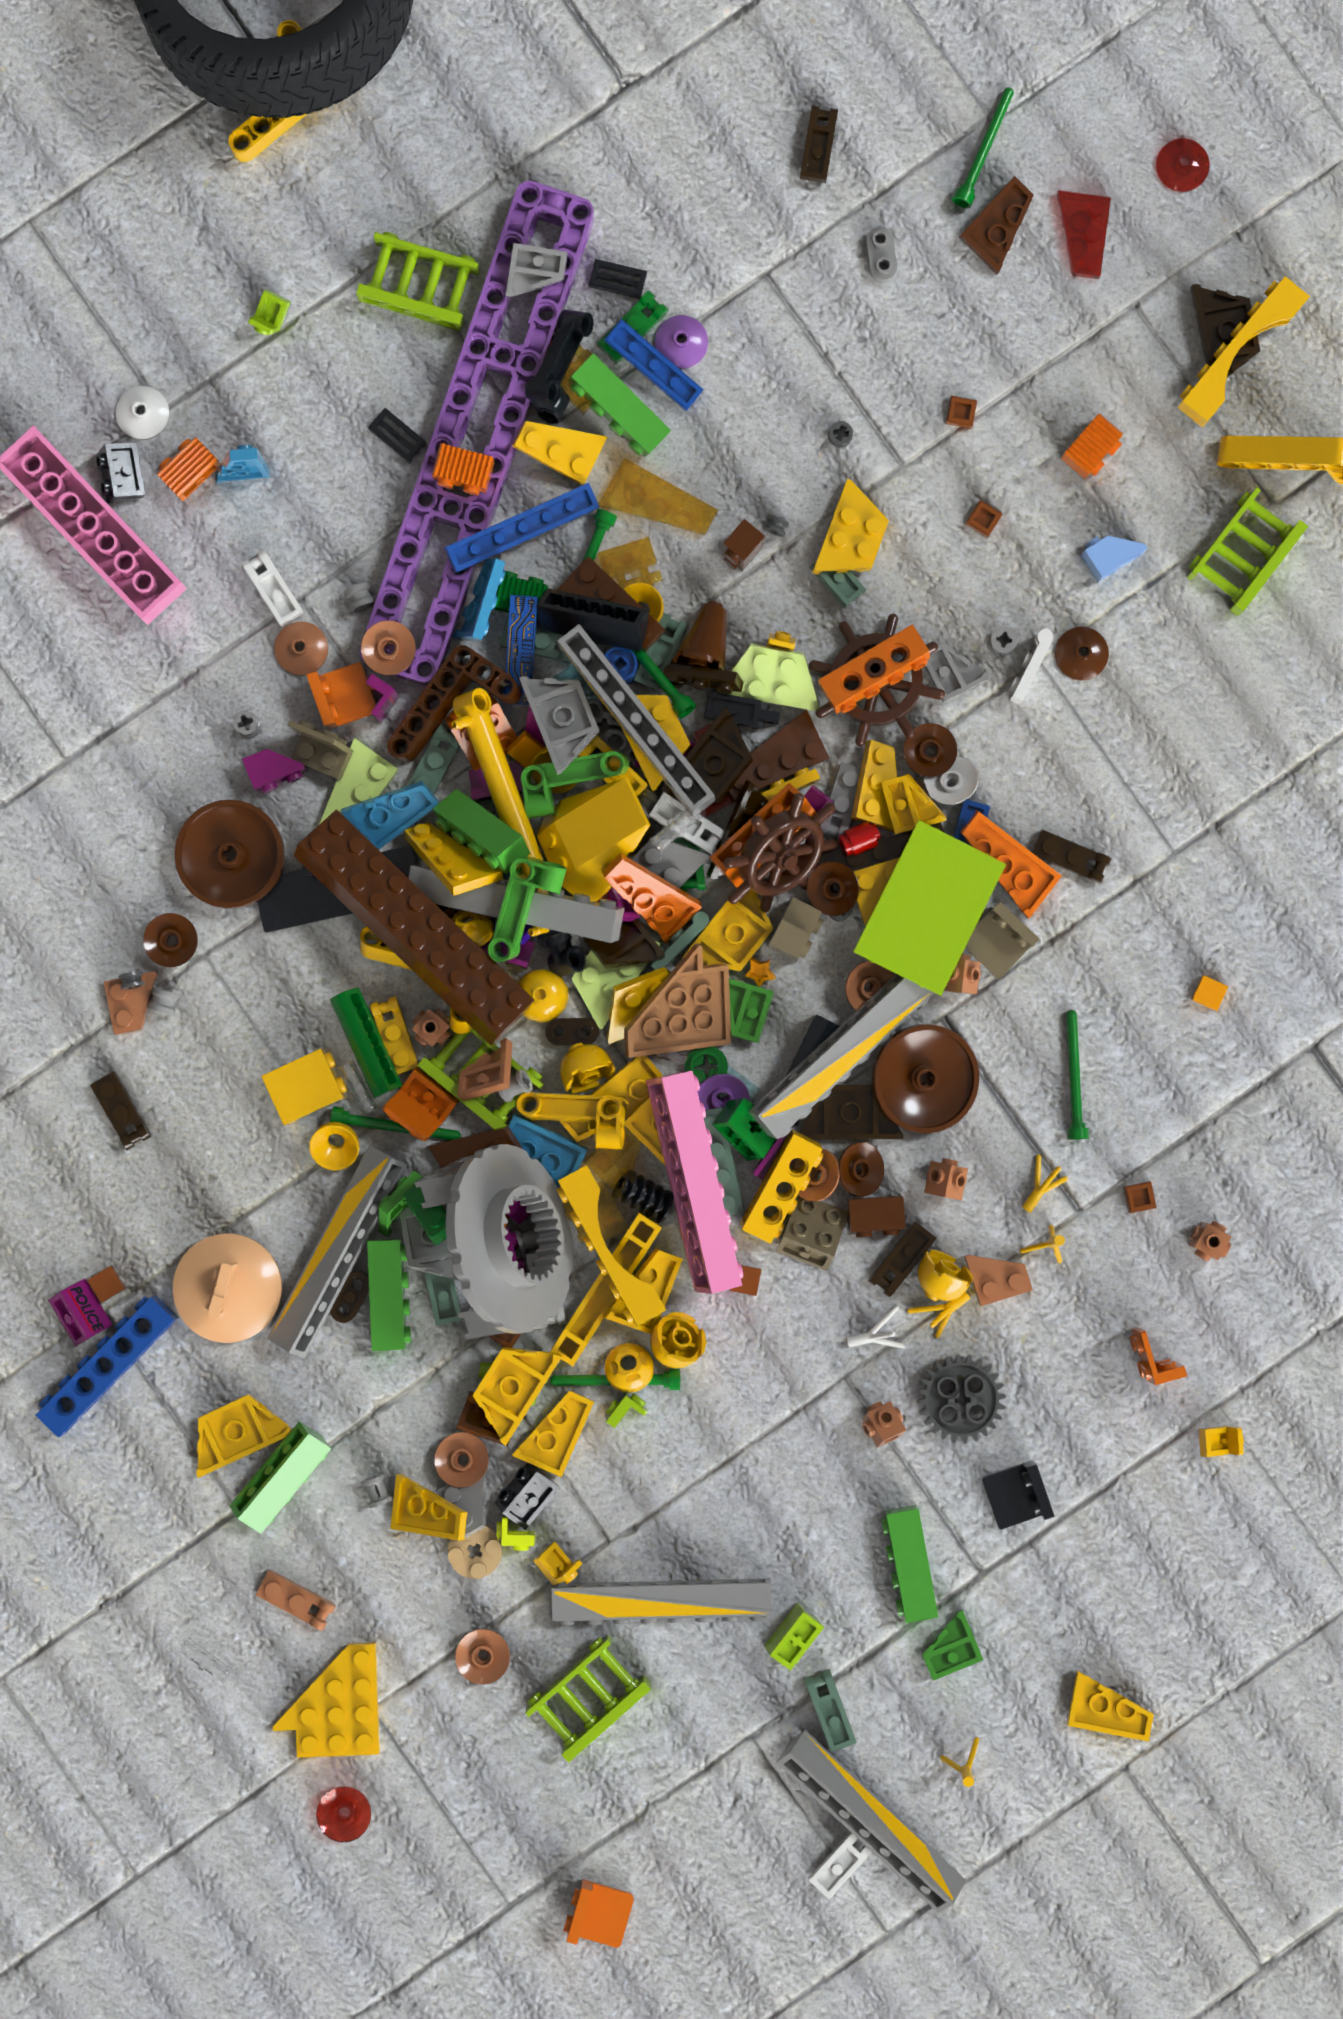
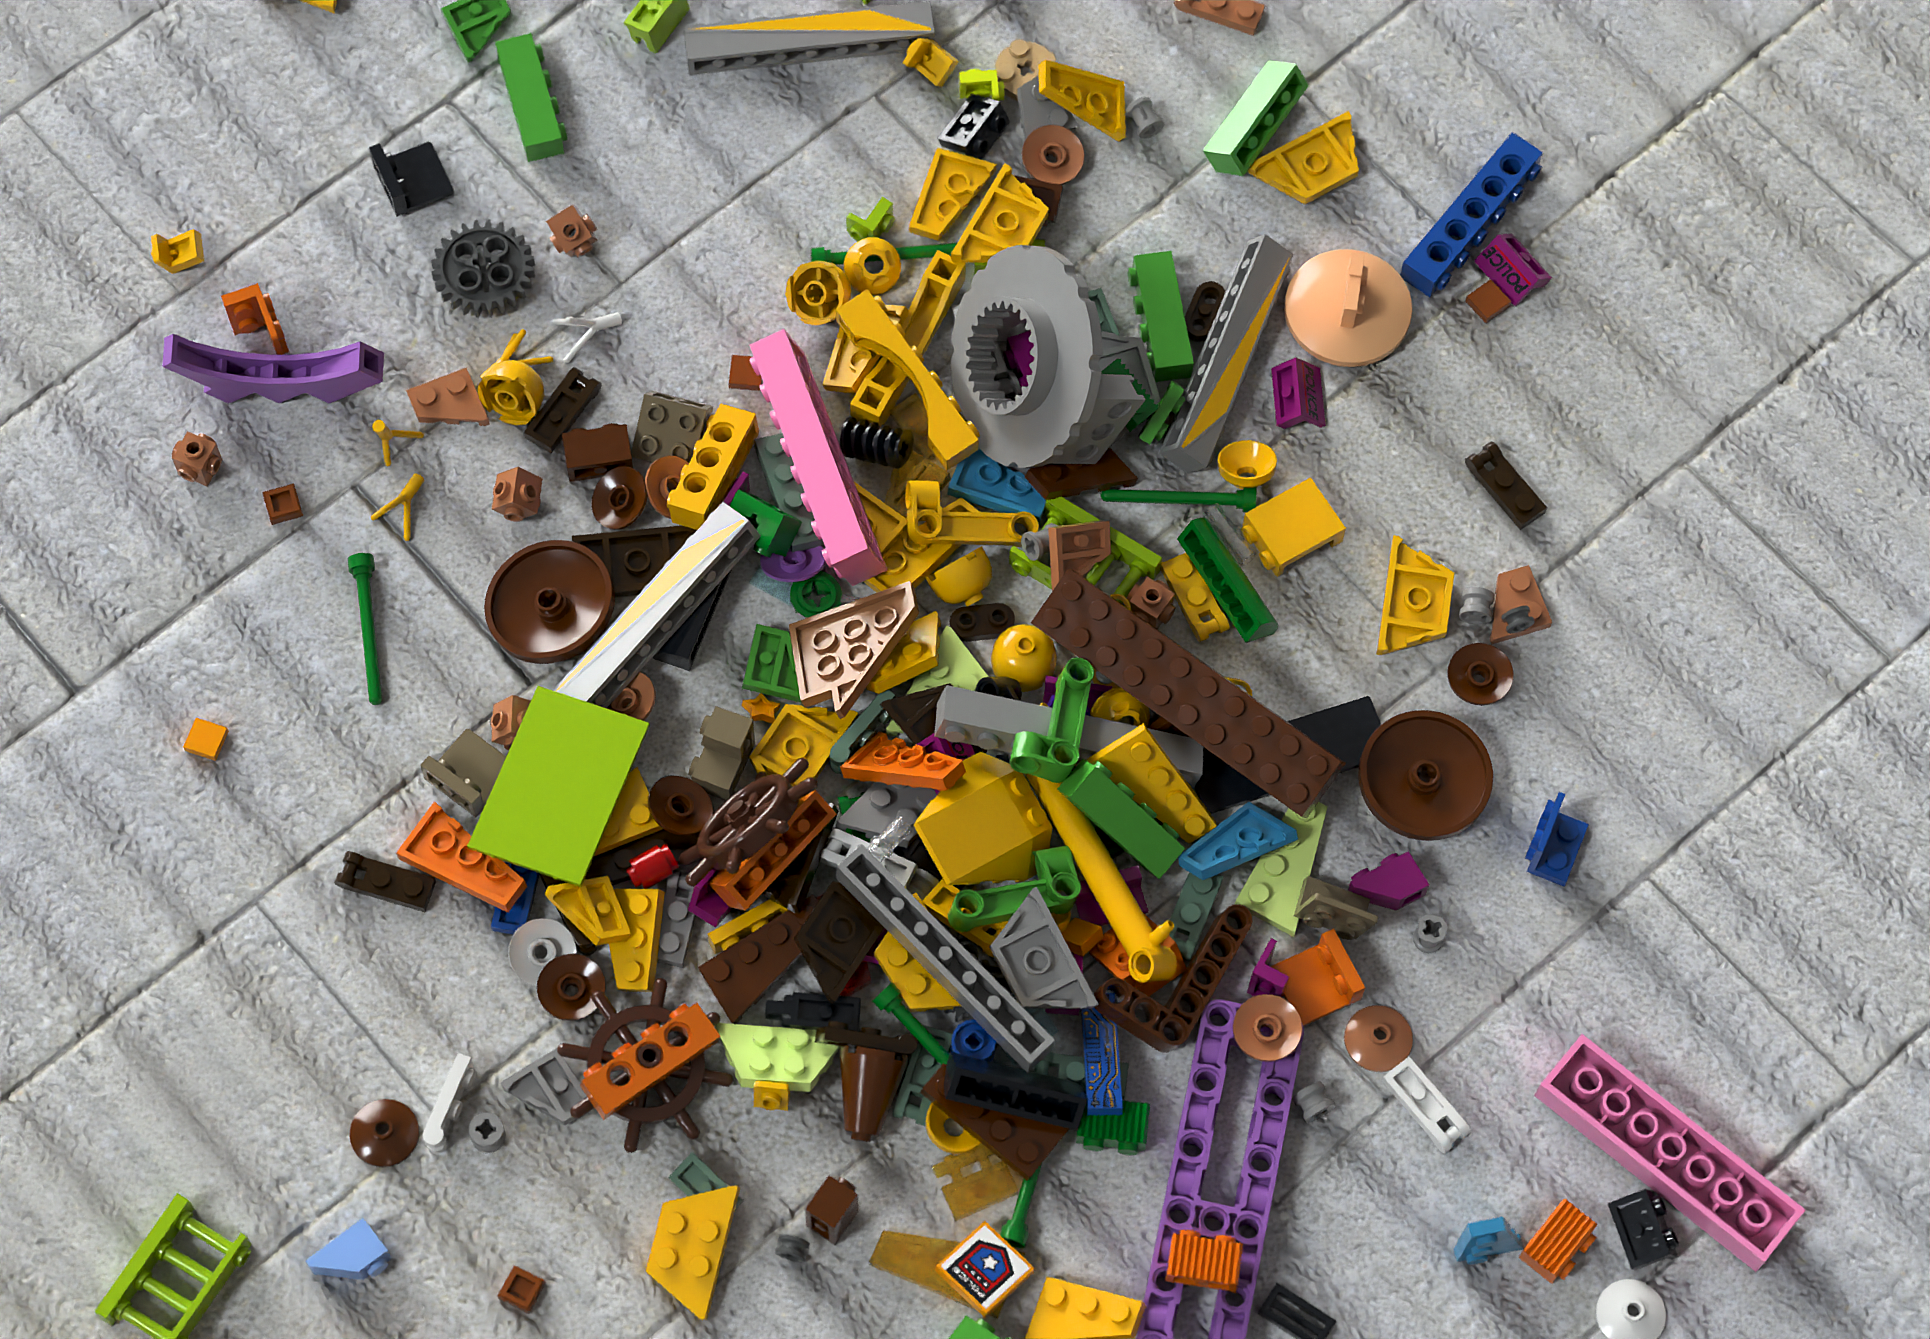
camera: 175 degrees right, 20 degrees down
(133, 789) = (1555, 843): none -> blue bracket
(213, 1013) = (1414, 599): none -> yellow wing
(282, 1210) = (1298, 393): none -> magenta panel
(420, 1105) = (1154, 511): orange bracket -> none
(485, 600) = (1159, 1094): dark azure wing -> none
(521, 527) = (1119, 1203): blue plate -> none
(630, 489) = (984, 1269): none -> tile
(1145, 1309) = (237, 374): none -> medium lavender arch

